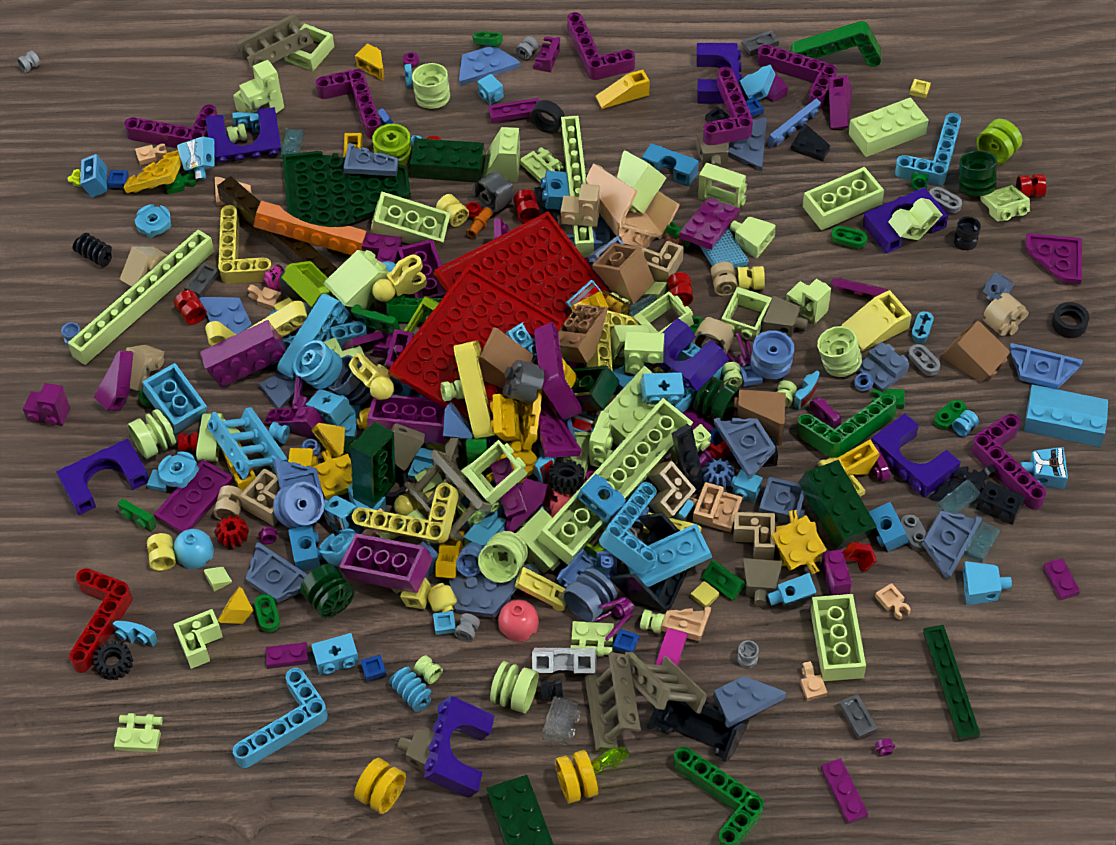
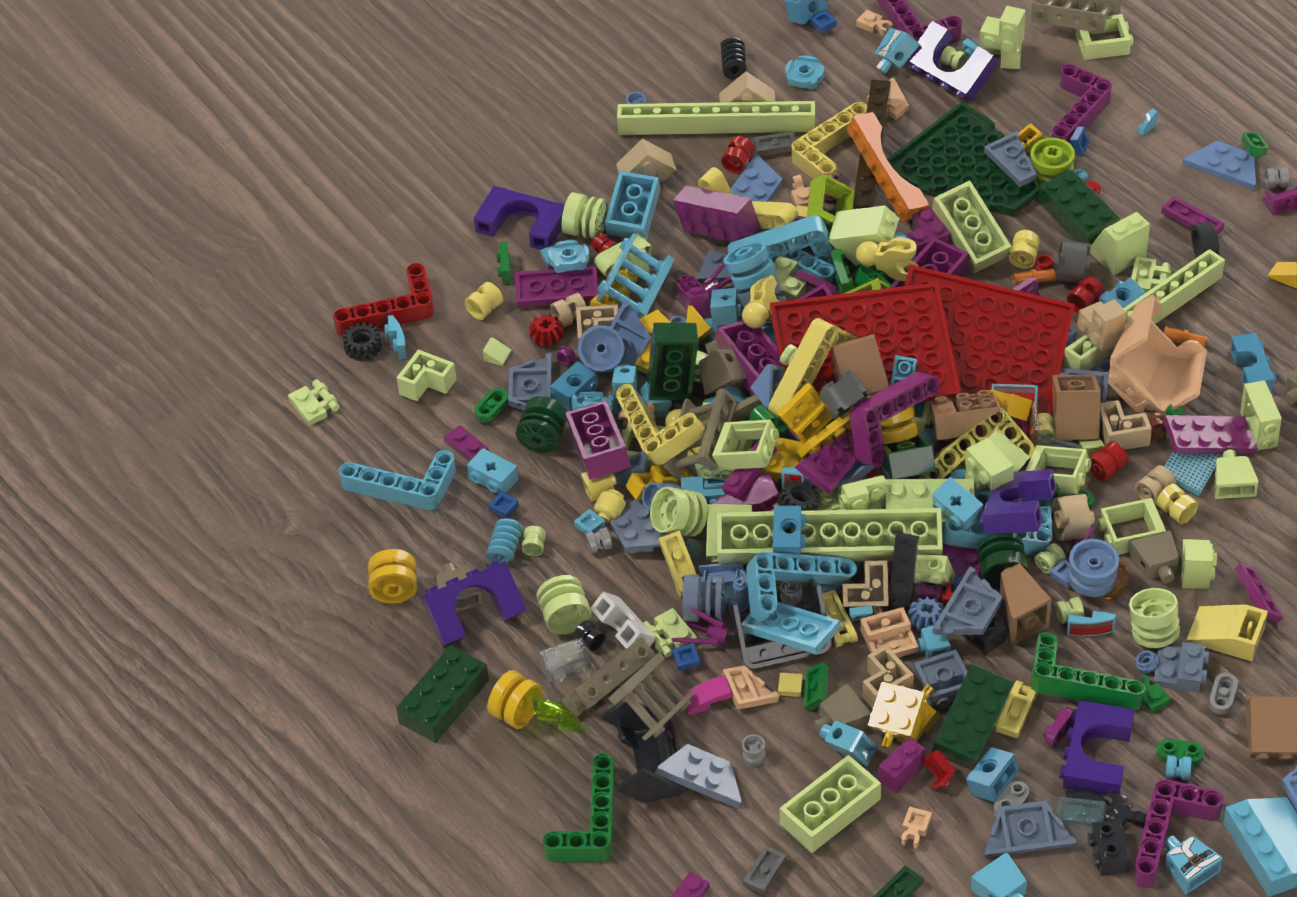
camera: 55 degrees right, 5 degrees down
(47, 406) = (552, 139): magenta brick -> none
(116, 383) = (611, 159): magenta slope -> none
(155, 174) = (852, 40): yellow plate -> none
(180, 183) = (861, 59): green plate -> none
(193, 548) = (508, 319): medium azure cylinder -> none
(236, 609) = (473, 381): yellow slope -> none
(279, 432) = (670, 295): medium azure wheel -> none
(292, 142) = (987, 100): clear light blue plate -> none
(370, 61) = (1136, 86): yellow slope -> none
(411, 58) = (1171, 111): magenta plate -> none
(431, 85) = (1148, 141): yellowish green wheel -> none
(490, 89) = (1196, 185): medium azure brick -> none
(518, 620) = (639, 570): coral cylinder -> none
(642, 178) = (1186, 347): yellowish green slope -> none
(654, 620) = (722, 659): yellowish green wheel -> none
(812, 685) = (768, 819): light nougat plate -> none
(825, 412) = (1081, 645): magenta plate -> none
(860, 459) = (1042, 705): yellow slope -> none
(918, 326) = (1264, 670): medium azure beam -> none
(982, 542) = (1050, 859): clear light blue plate -> none

